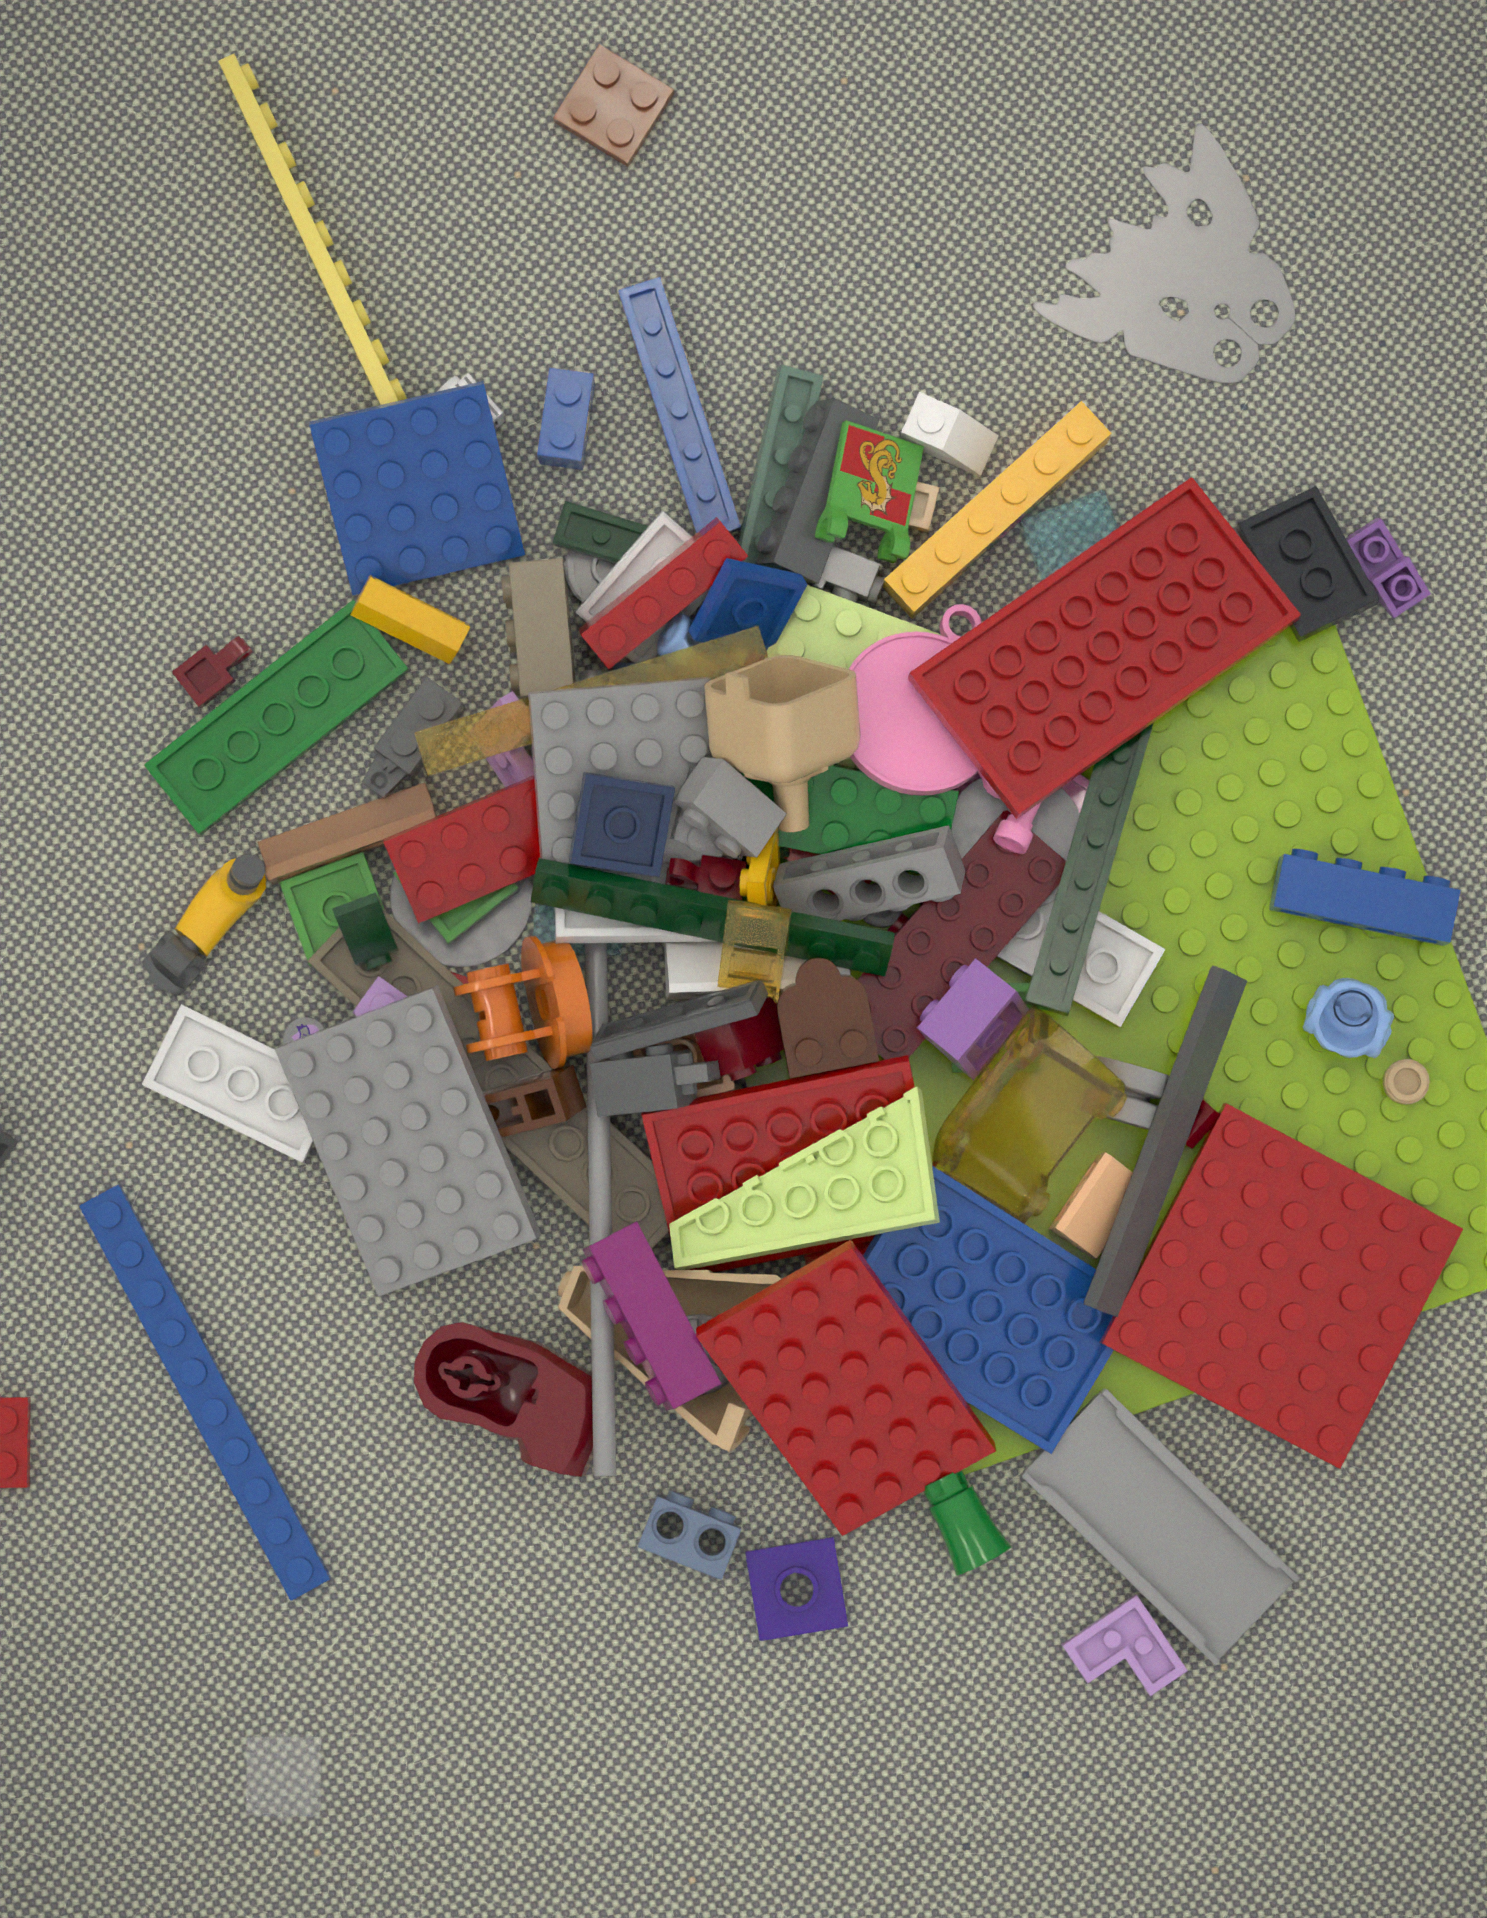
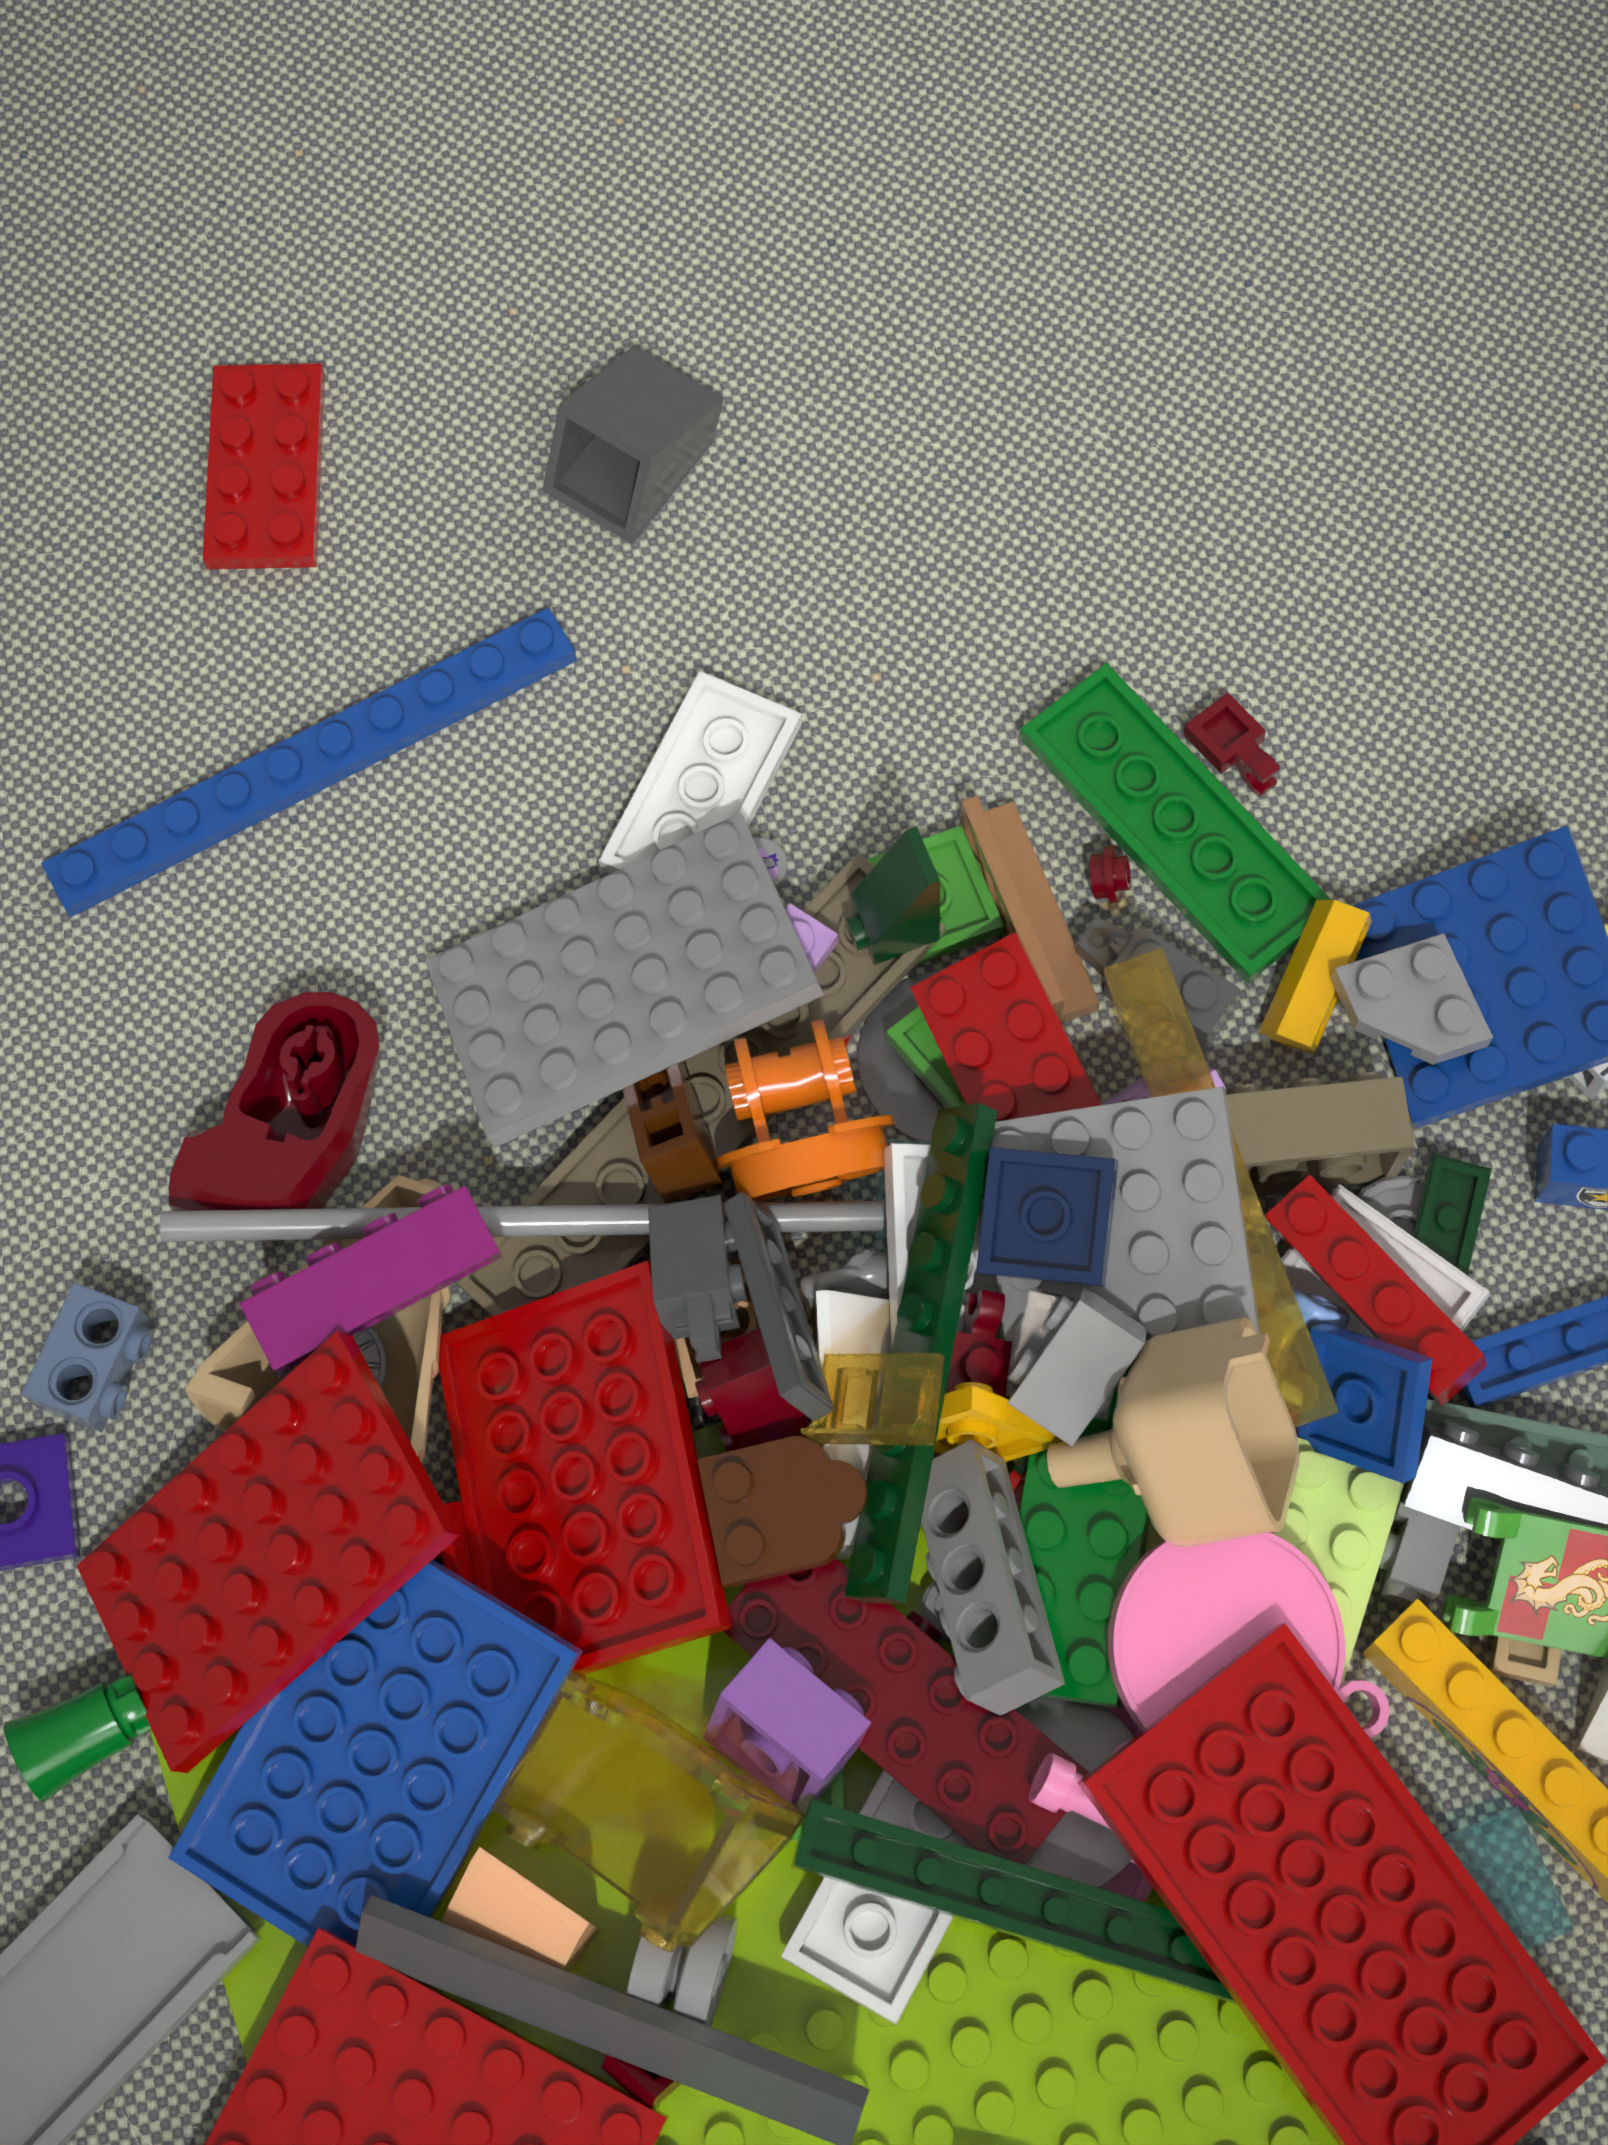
camera: 90 degrees right, 15 degrees down
(212, 912) = (914, 746): piece -> none
(321, 770) = (1109, 874): none -> dark red plate
(441, 548) = (1414, 999): none -> light grey plate
(646, 963) = (862, 1275): none -> light grey piece
(836, 1190) = (538, 1526): yellowish green wing -> none

